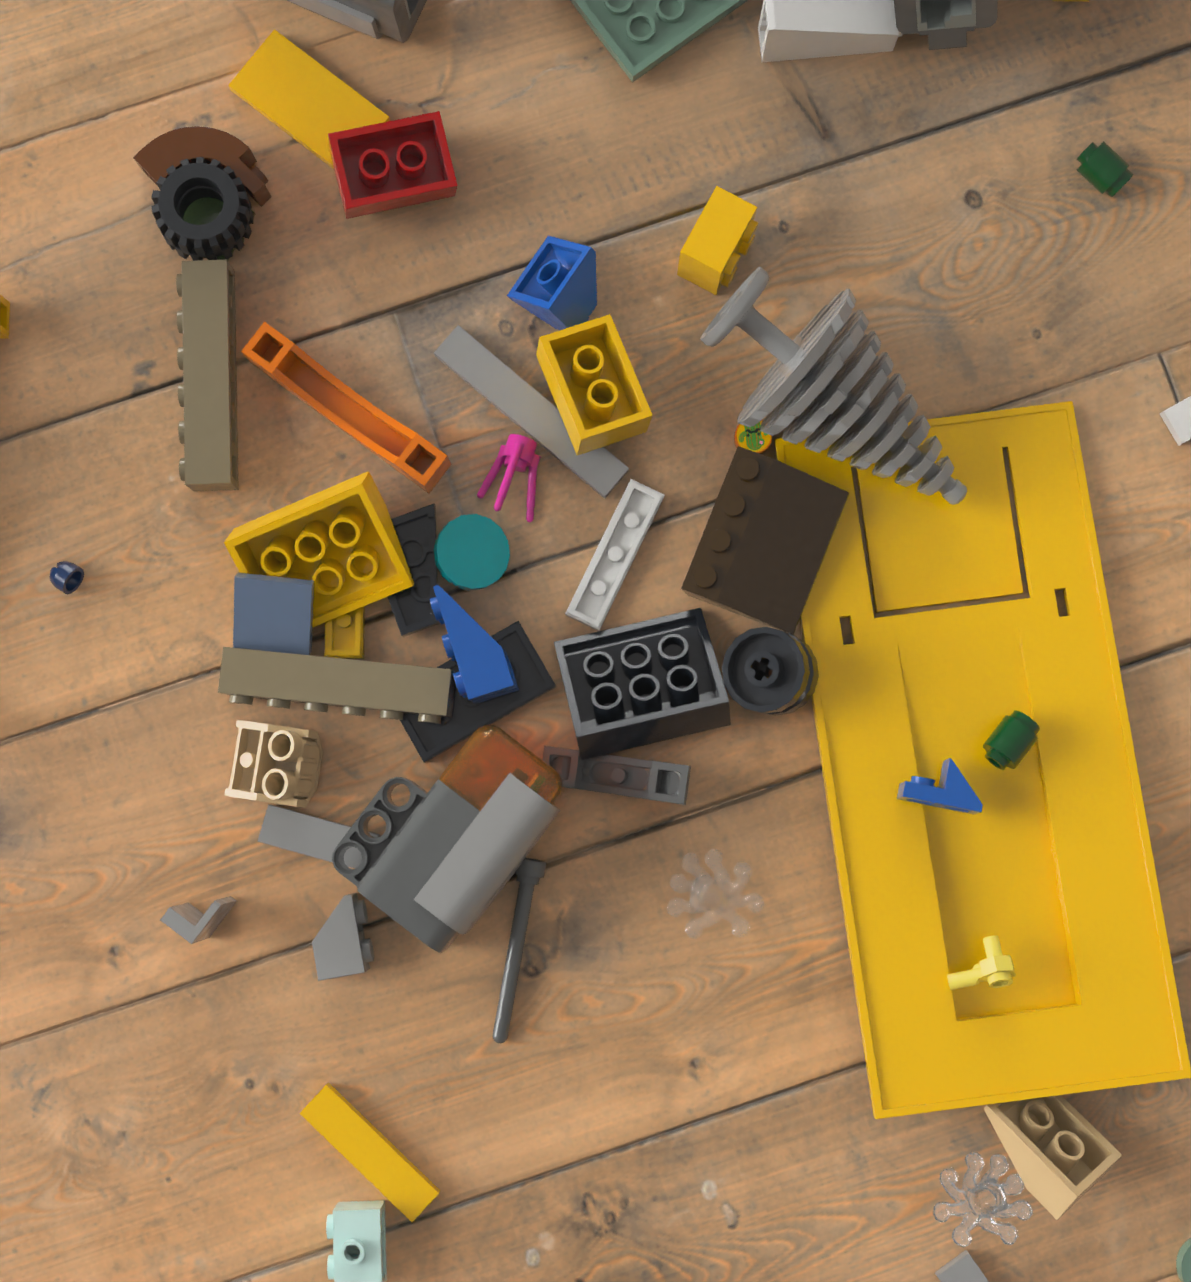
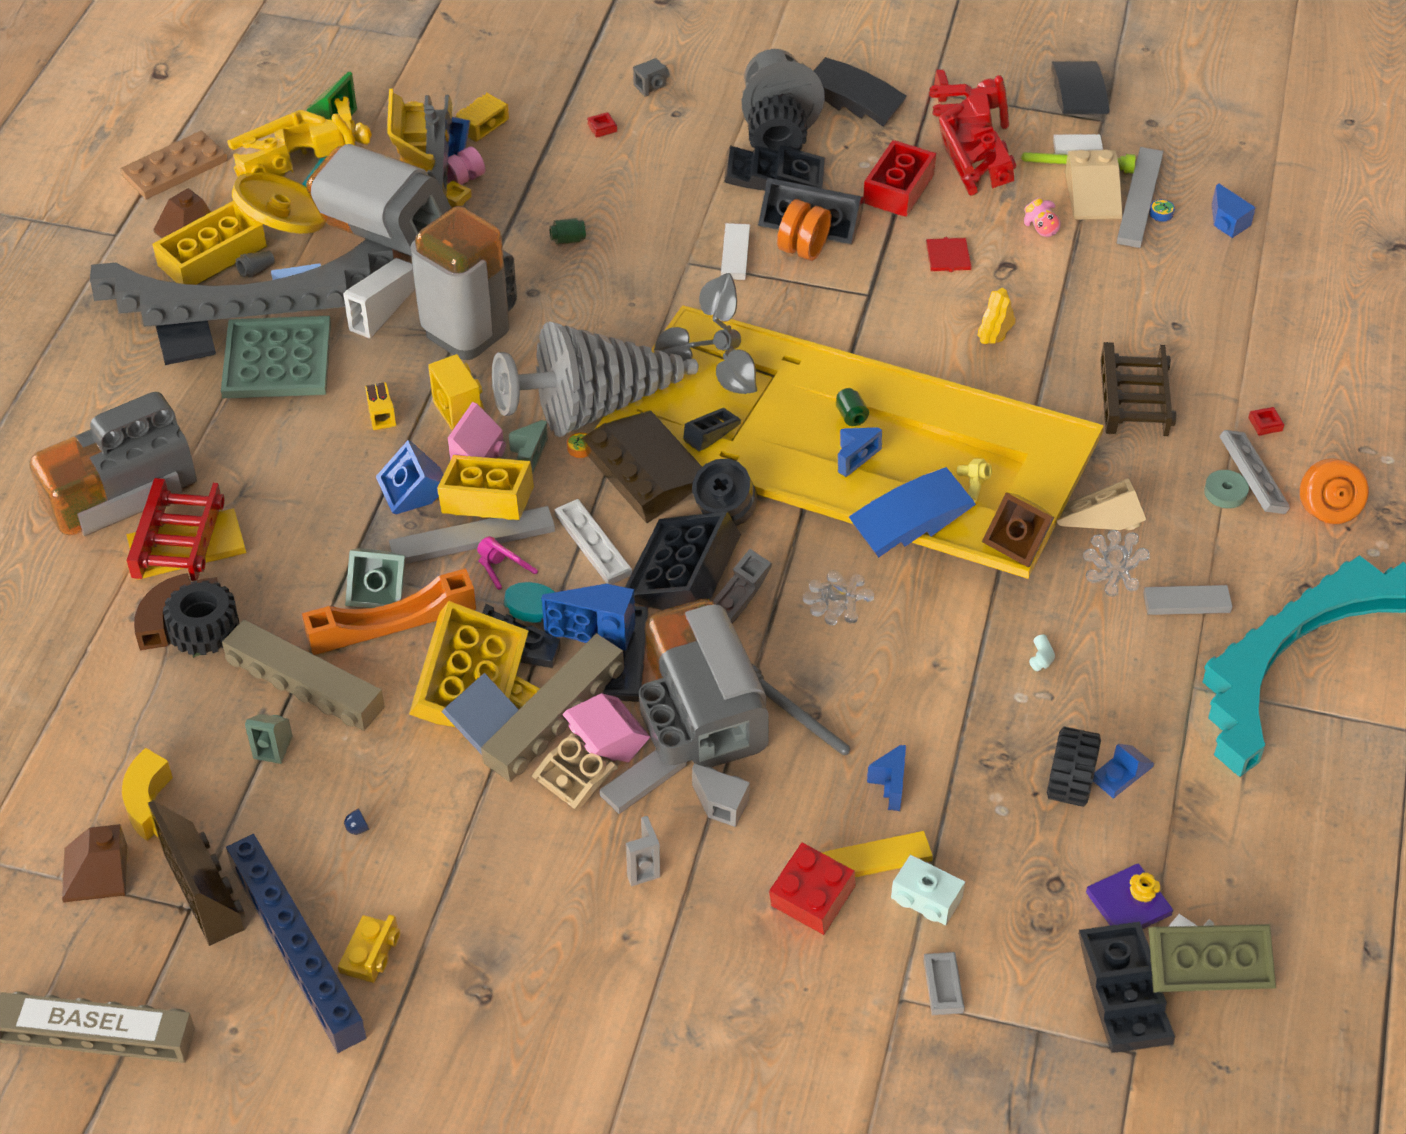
camera: 60 degrees left, 35 degrees down
(101, 404) = (268, 737): none -> sand green slope
(275, 1124) = (812, 888): none -> red brick
(284, 51) = (155, 517): none -> red fence
(335, 765) = (607, 728): none -> bright pink slope
(388, 351) = (374, 578): none -> sand green slope
(392, 164) = (267, 511): red brick -> none
(498, 1113) = (889, 772): none -> blue slope
(652, 159) = (380, 403): none -> yellow leg
(656, 323) = (476, 435): none -> bright pink slope
(715, 381) = (529, 442): none -> sand green slope
(784, 1189) = (1045, 653): none -> light aqua arm
(840, 586) = (708, 428): none -> black slope
(876, 129) = (463, 282): none -> piece
(876, 925) = (912, 510): none -> blue slope
(927, 1081) = (1018, 528): none -> reddish brown slope
(1042, 483) = (718, 299): none -> dark grey plant

